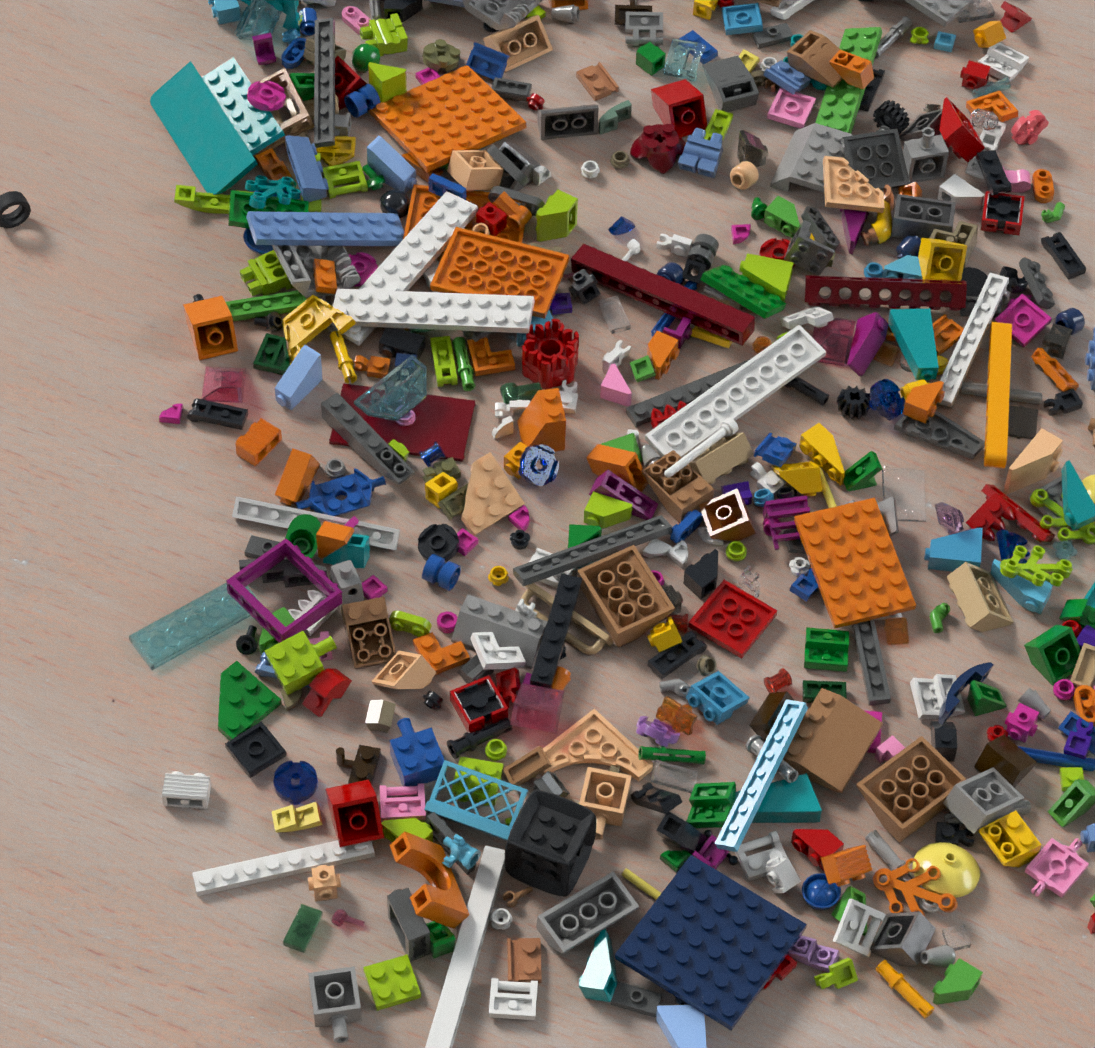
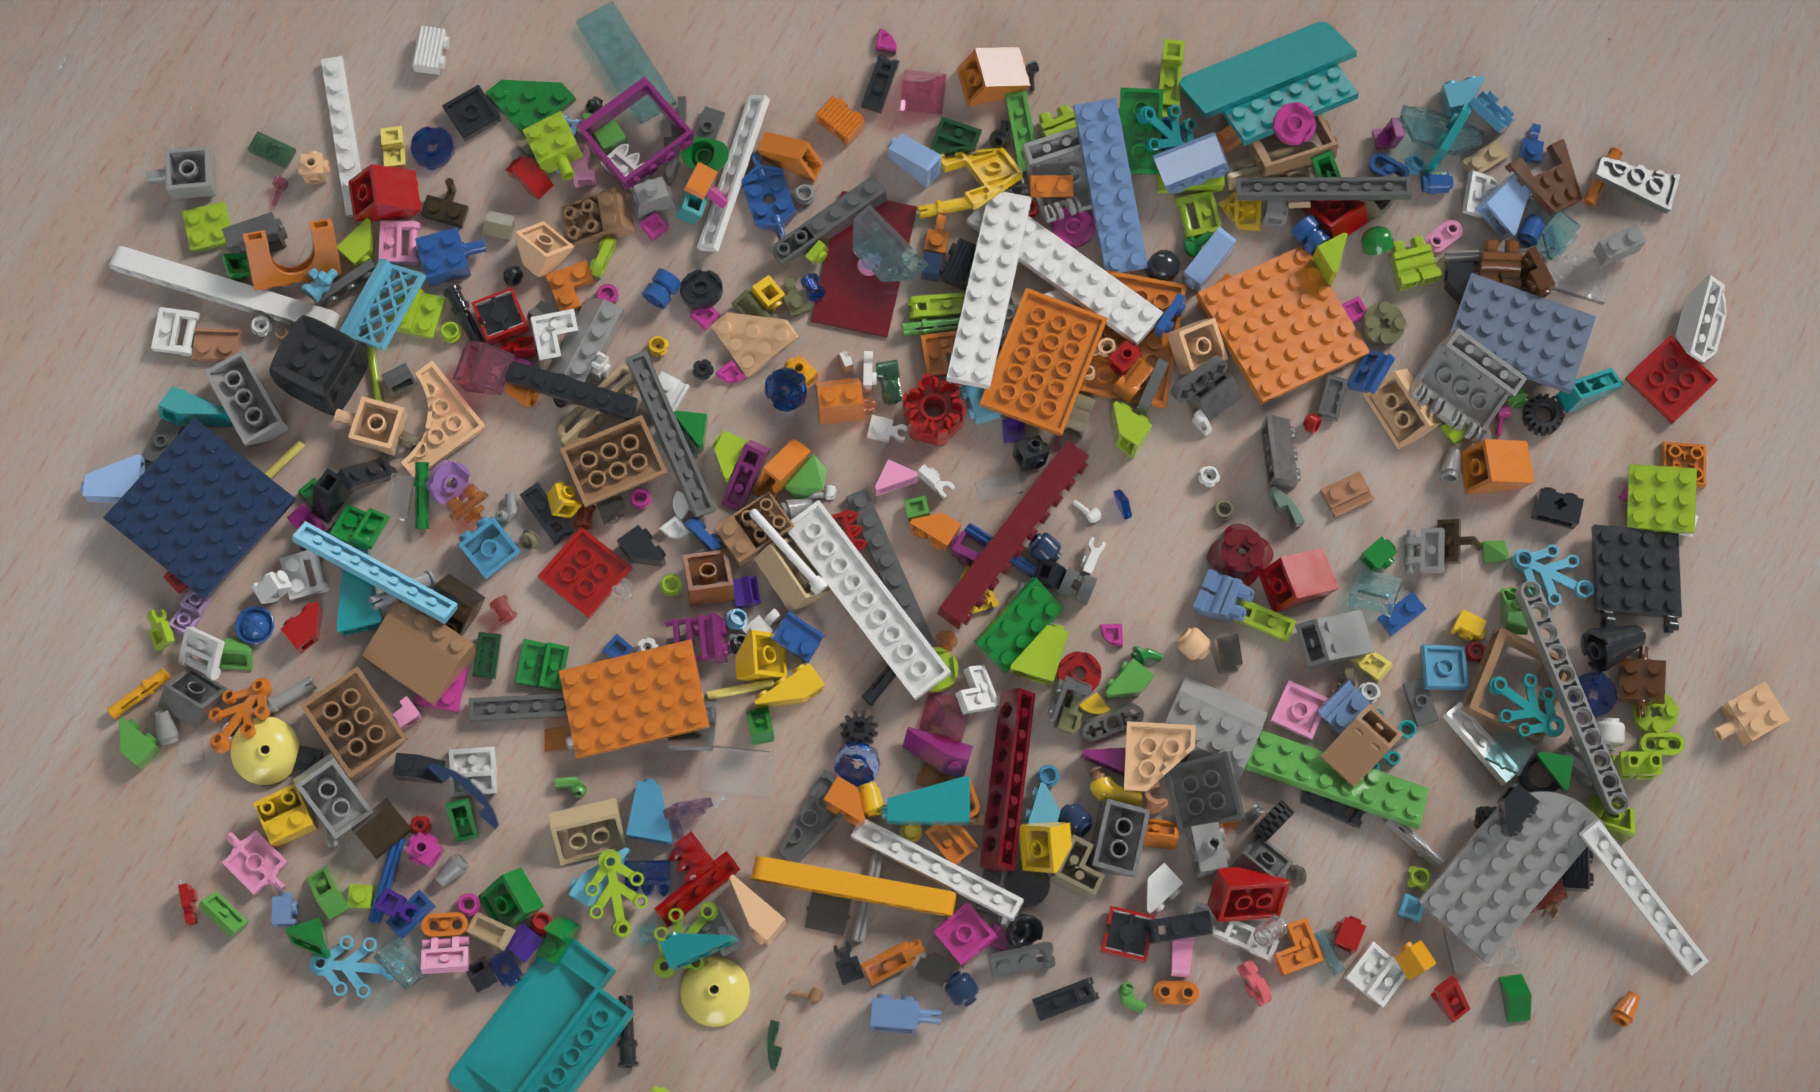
camera: 90 degrees right, 20 degrees up
(527, 767) = (422, 357): medium nougat tile -> none
(846, 864) = (272, 648): orange brick -> none
(853, 69) = (1338, 776): orange slope -> none

